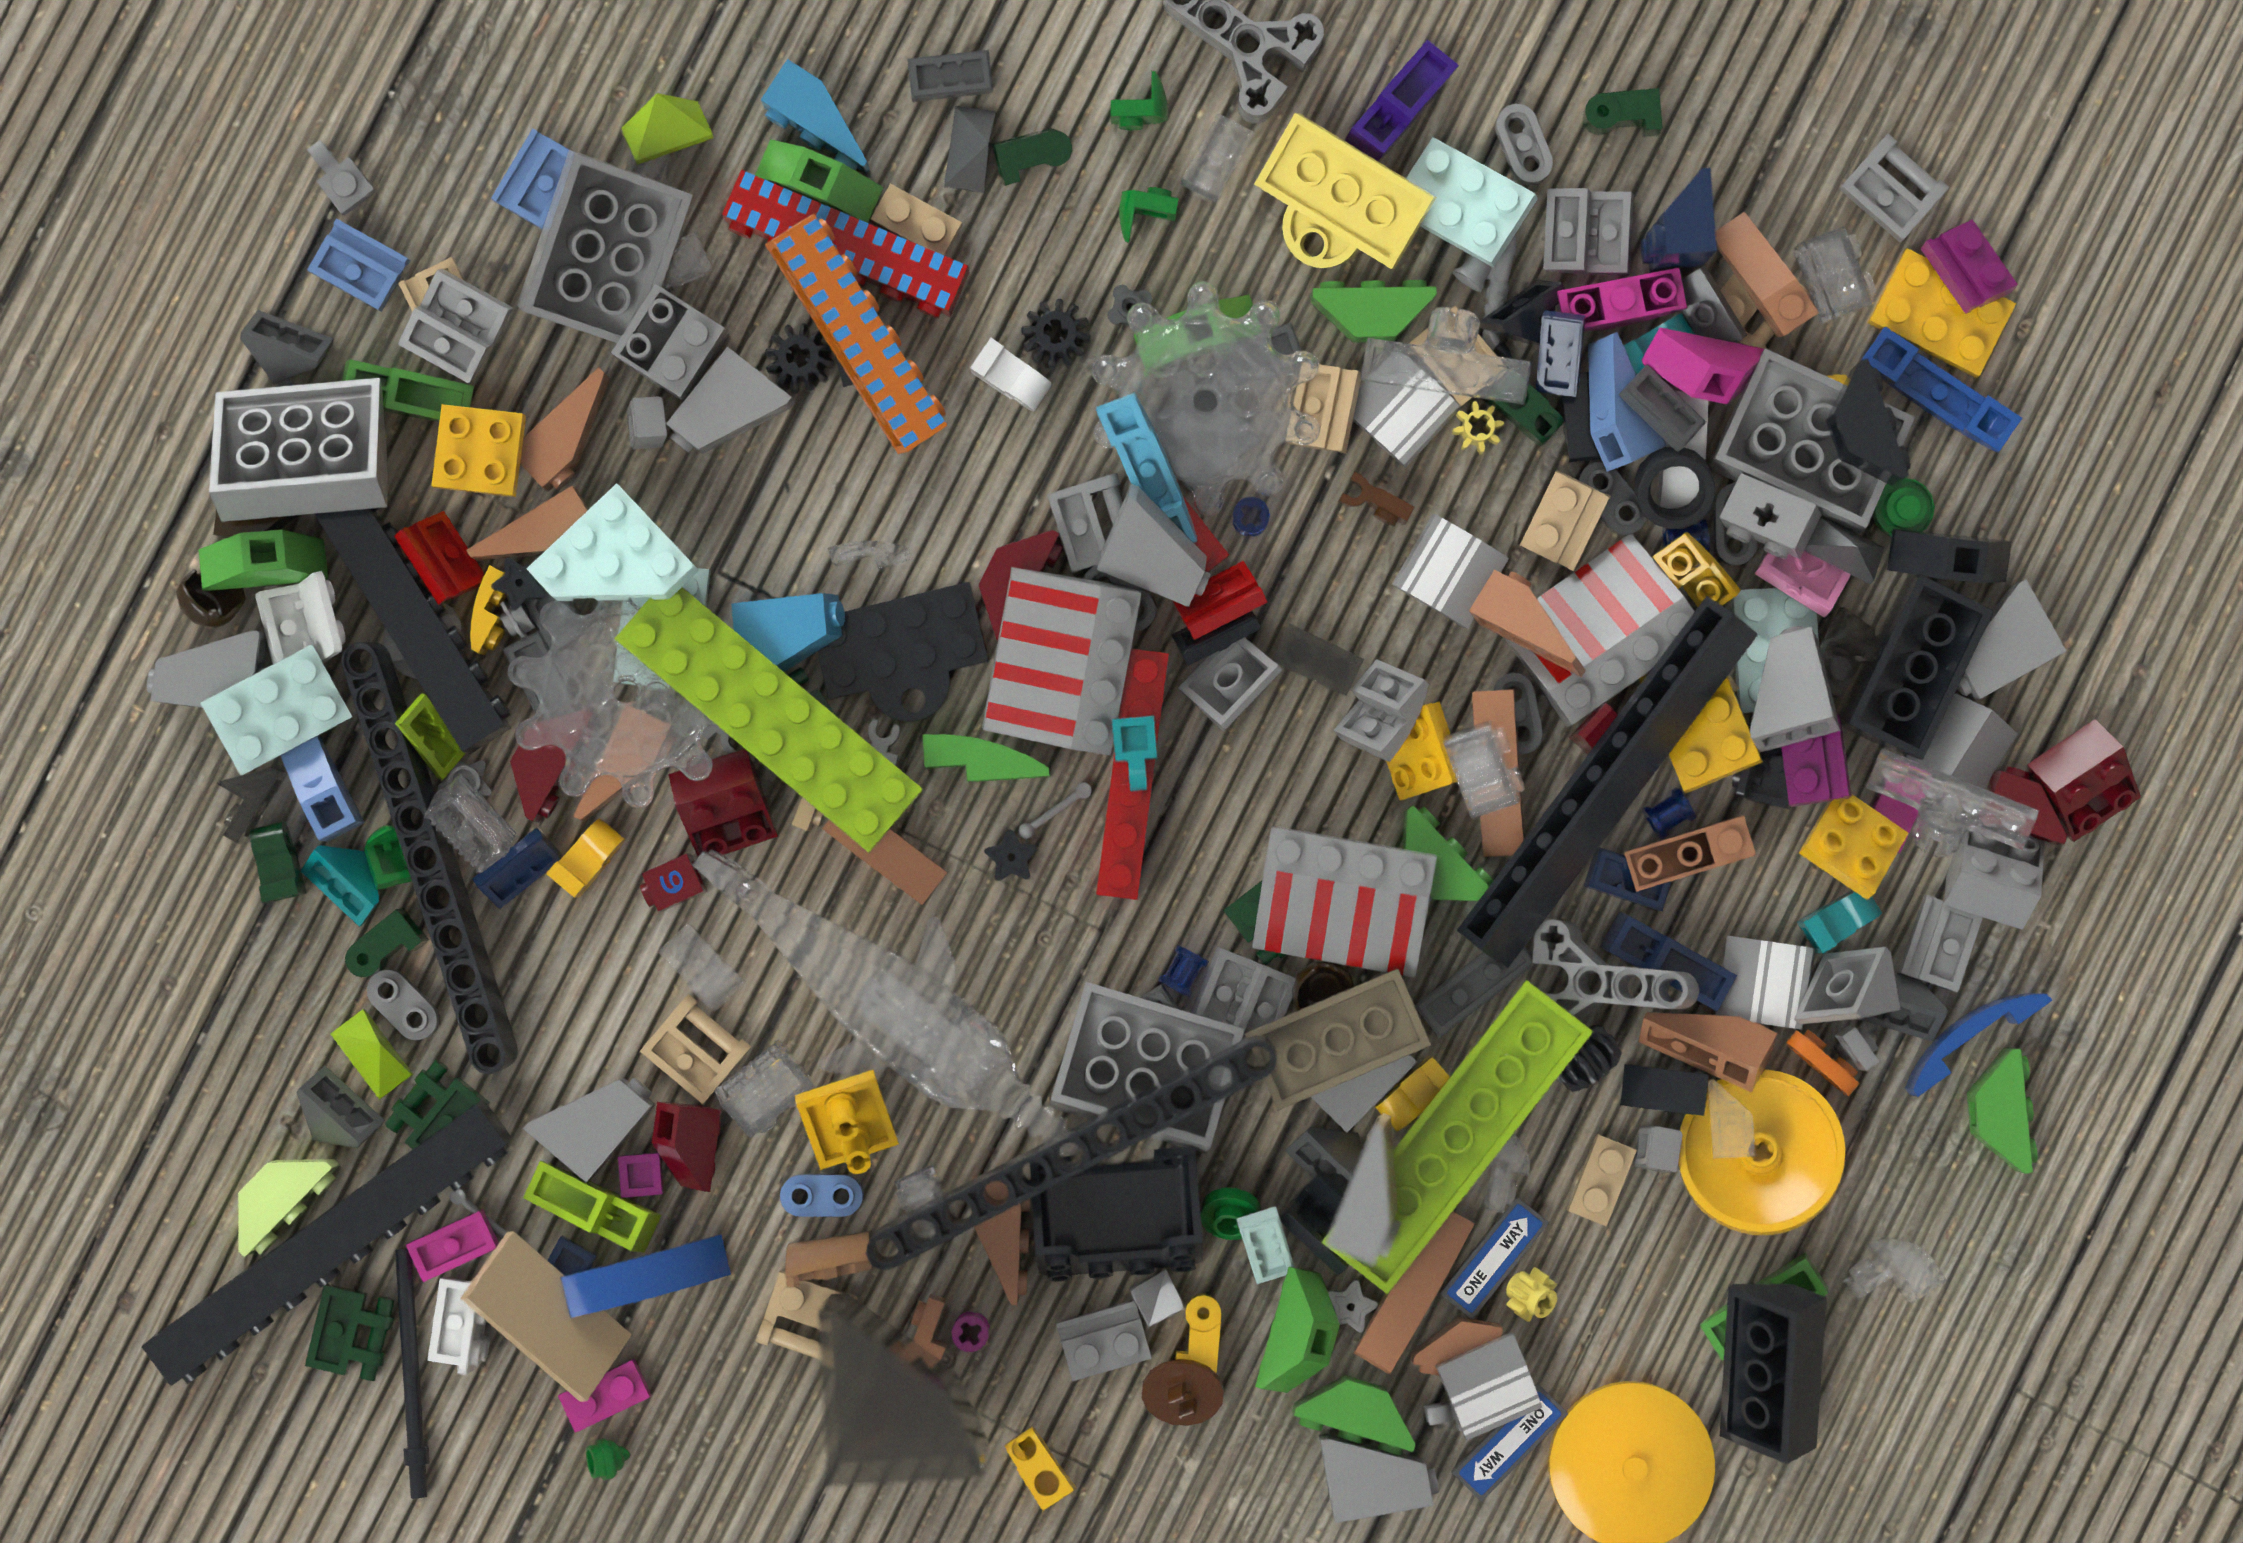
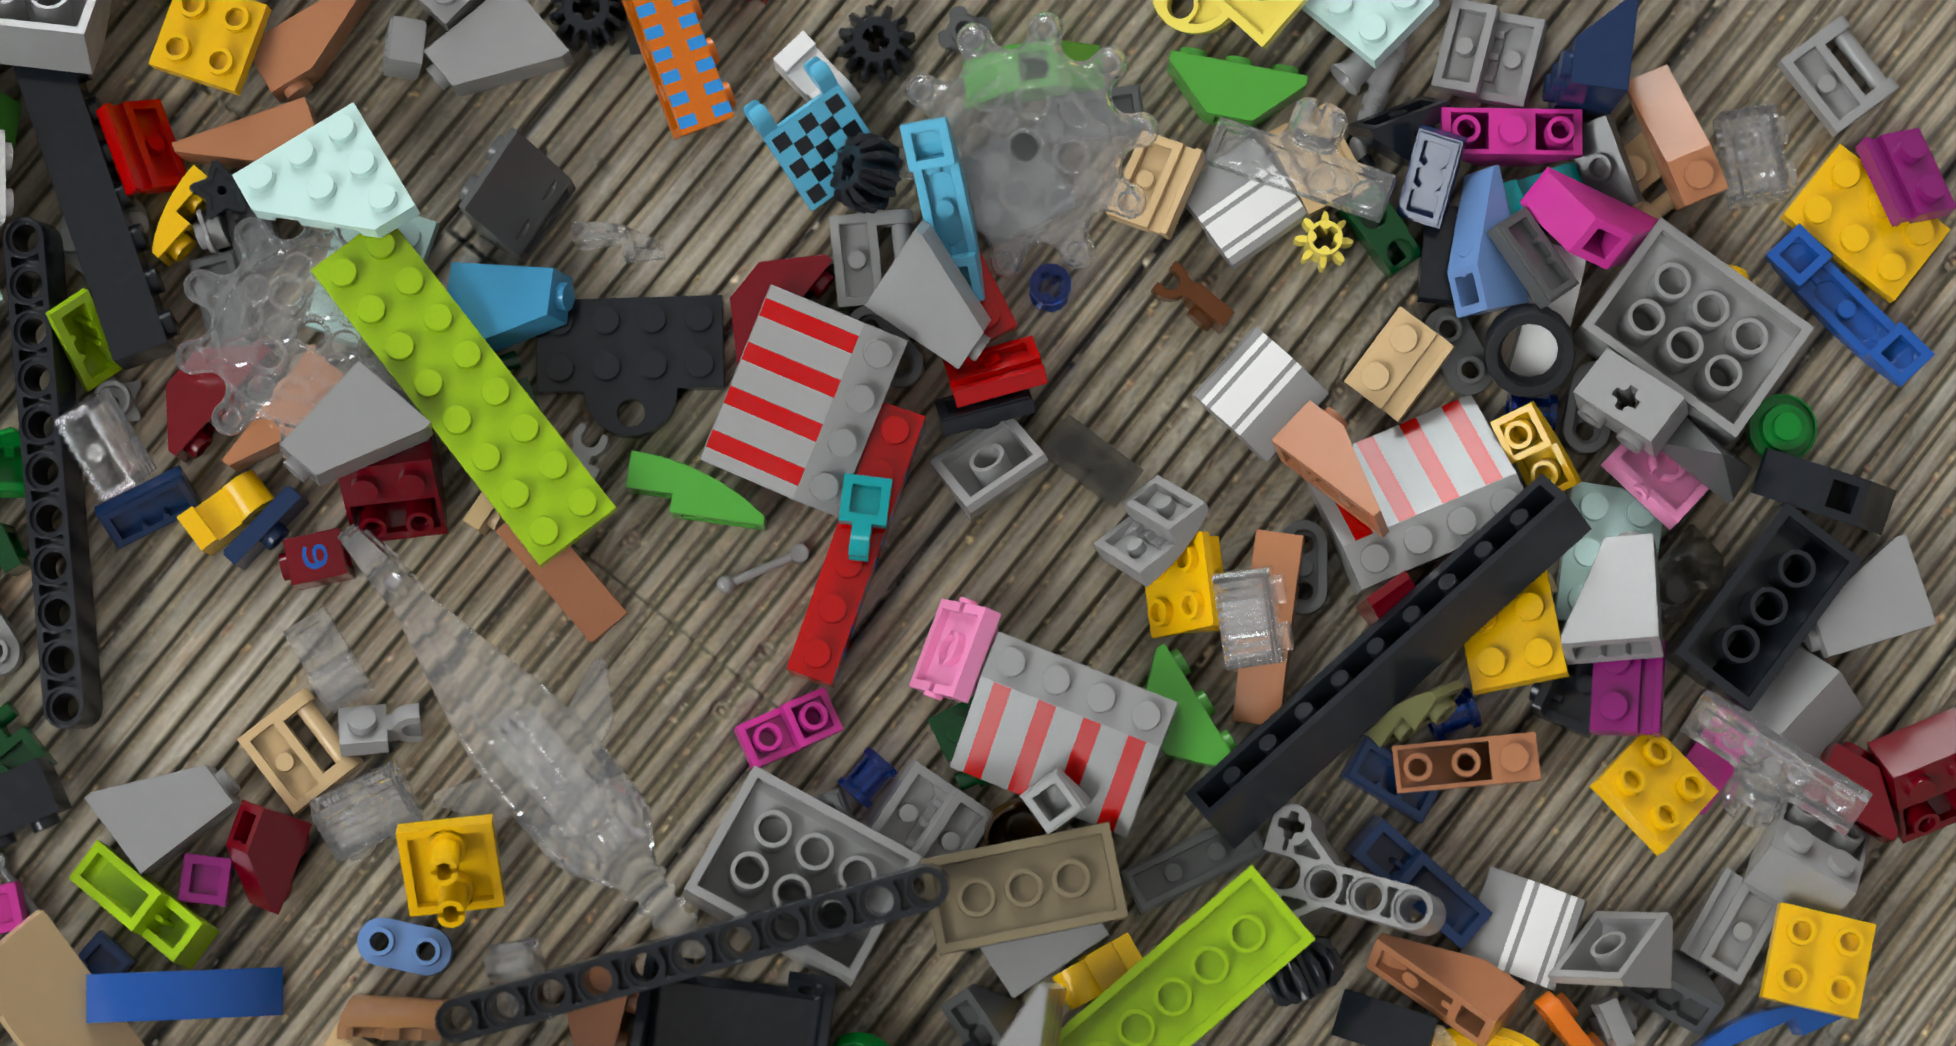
camera: 10 degrees right, 5 degrees down
(624, 866) = (267, 528): none -> dark blue plate
(683, 769) = (353, 428): none -> light grey slope
(750, 1018) = (370, 729): none -> light grey plate
(775, 536) = (515, 196): none -> dark grey slope
(1022, 854) = (706, 622): black plate -> none
(1027, 431) = (810, 136): none -> medium azure flag
(1072, 451) = (866, 173): none -> black gear
(1106, 943) = (788, 728): none -> dark pink slope
(1236, 848) = (955, 650): none -> bright pink plate
(1348, 959) = (1055, 800): none -> light grey slope
(1649, 813) = (1410, 715): none -> olive slope
(1838, 920) = (1620, 875): teal leg -> none
(1866, 428) = (1756, 326): black slope -> none
(2019, 959) = (1817, 961): none -> yellow plate

